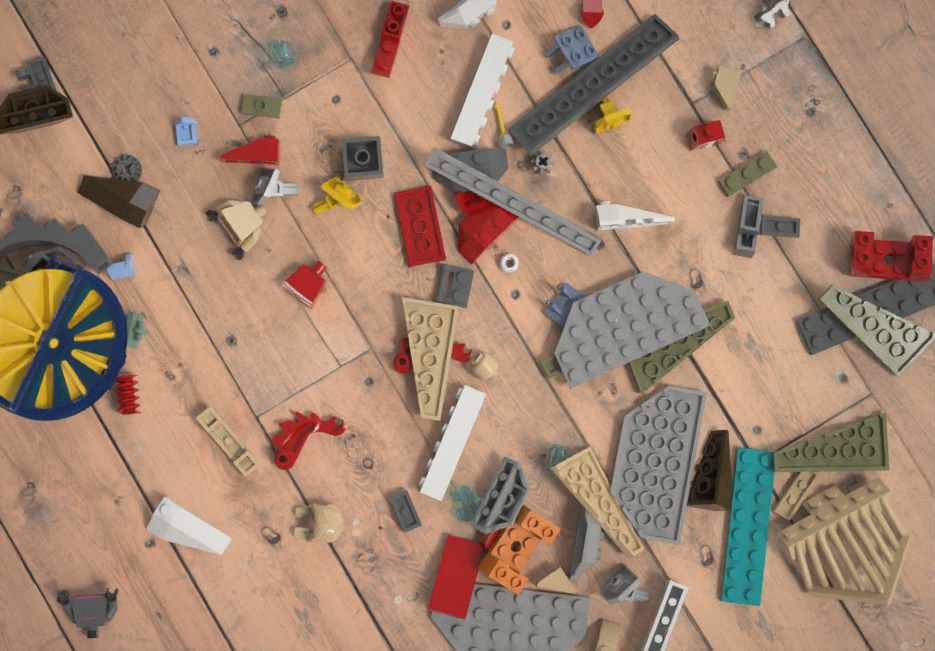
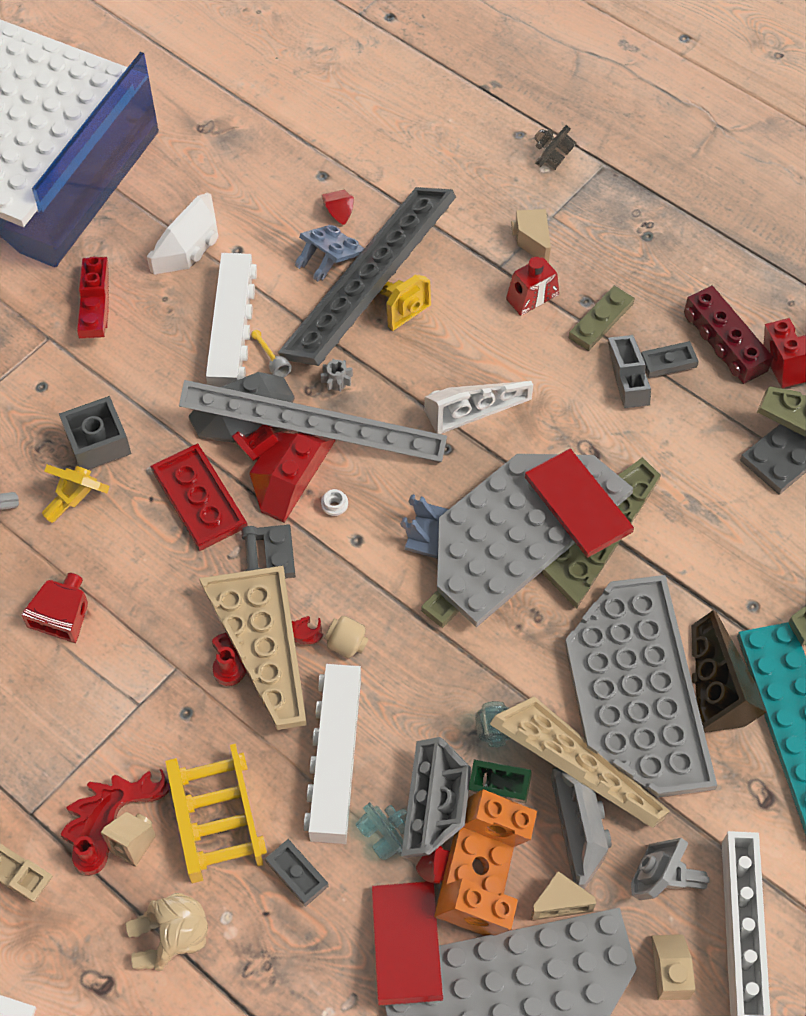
camera: 15 degrees left, 25 degrees down
(312, 456) = (129, 837): none -> tan slope
(352, 446) = (193, 832): none -> yellow fence
(546, 504) = (501, 780): none -> dark green torso
(668, 326) = (579, 502): none -> red tile
(830, 220) = (727, 334): none -> dark red brick

